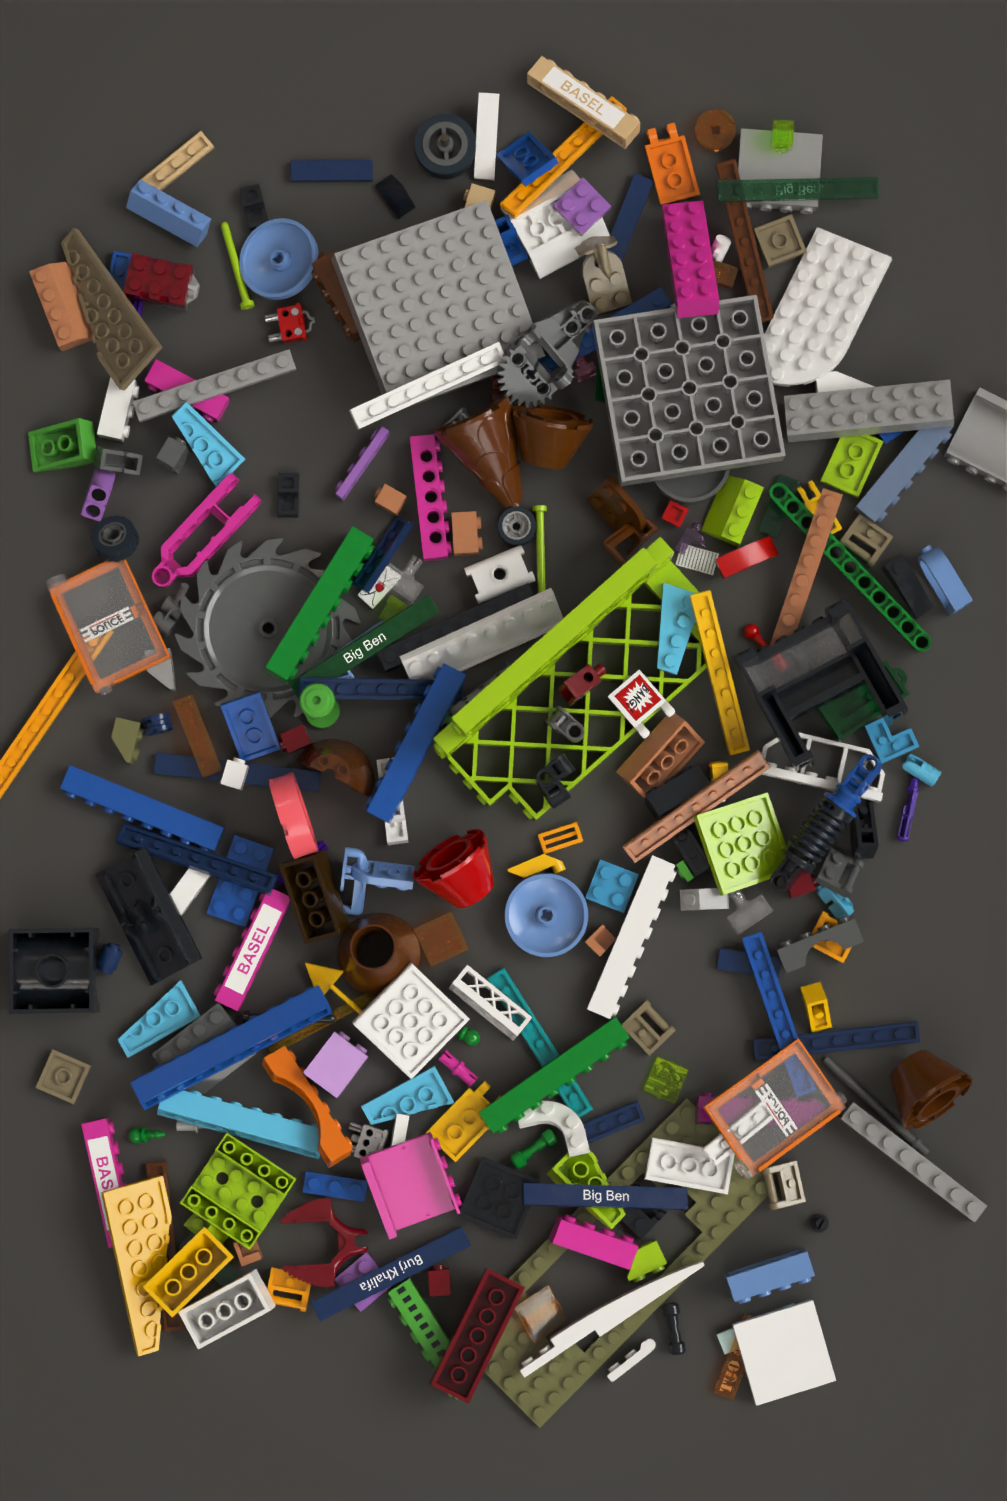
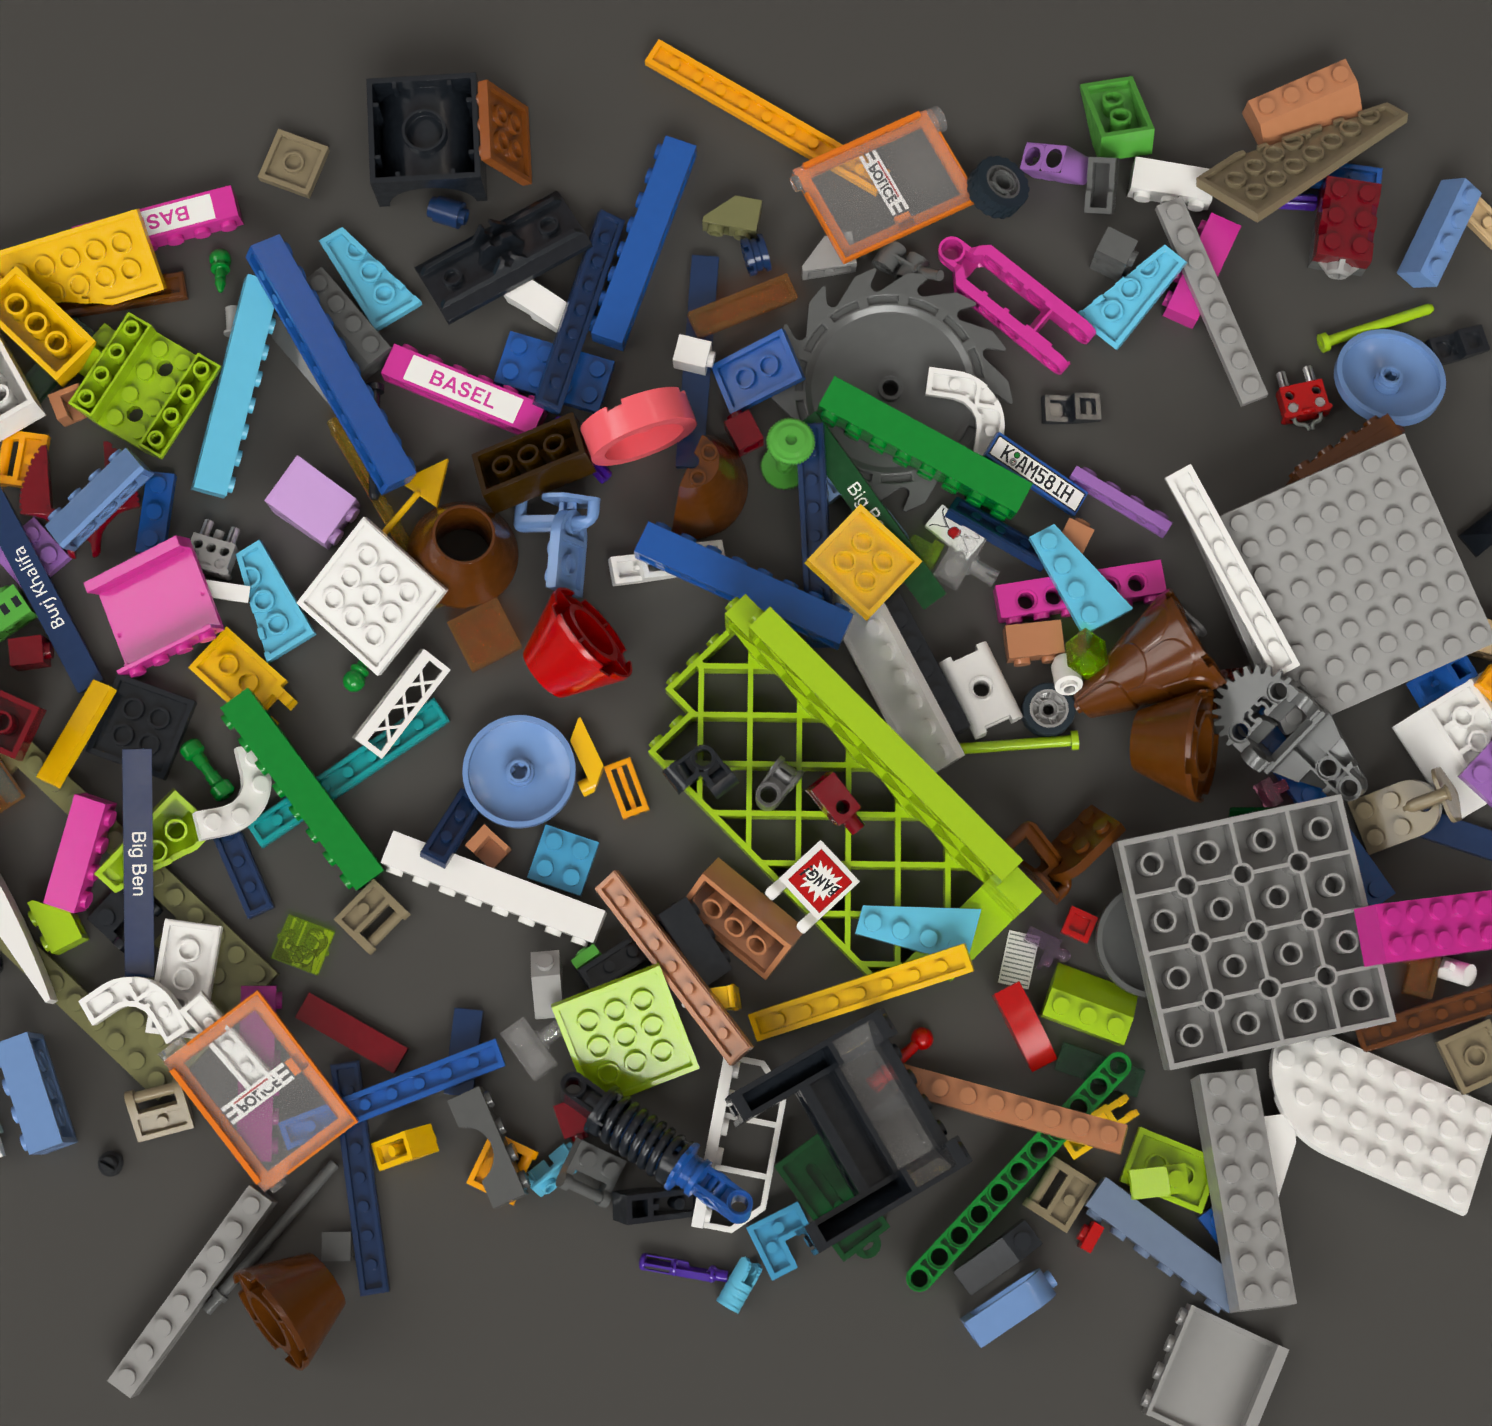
camera: 90 degrees right, 5 degrees down
(53, 911) = (504, 133): none -> dark orange plate
(283, 560) = (975, 396): none -> white plate
(285, 1071) = (207, 497): orange arch -> none
(328, 1225) = (98, 499): none -> medium blue slope
(339, 524) = (1045, 479): none -> tile
(406, 653) = (863, 562): none -> yellow plate
(427, 496) = (1080, 585): none -> medium azure wing
(458, 1068) = (313, 665): dark pink pin -> none
(479, 495) = (1086, 653): none -> clear neon green brick
(492, 511) = (1065, 679): none -> white brick
(503, 1244) = (76, 733): none -> yellow tile
(588, 967) = (450, 830): none -> dark blue tile
(700, 1195) = (139, 993): none -> white plate
(731, 1044) = (351, 1033): none -> dark red tile
(860, 469) = (1158, 1181): none -> lime slope
(884, 1058) = (336, 1246): none -> dark grey tile
(896, 521) = (1089, 1236): none -> red plate

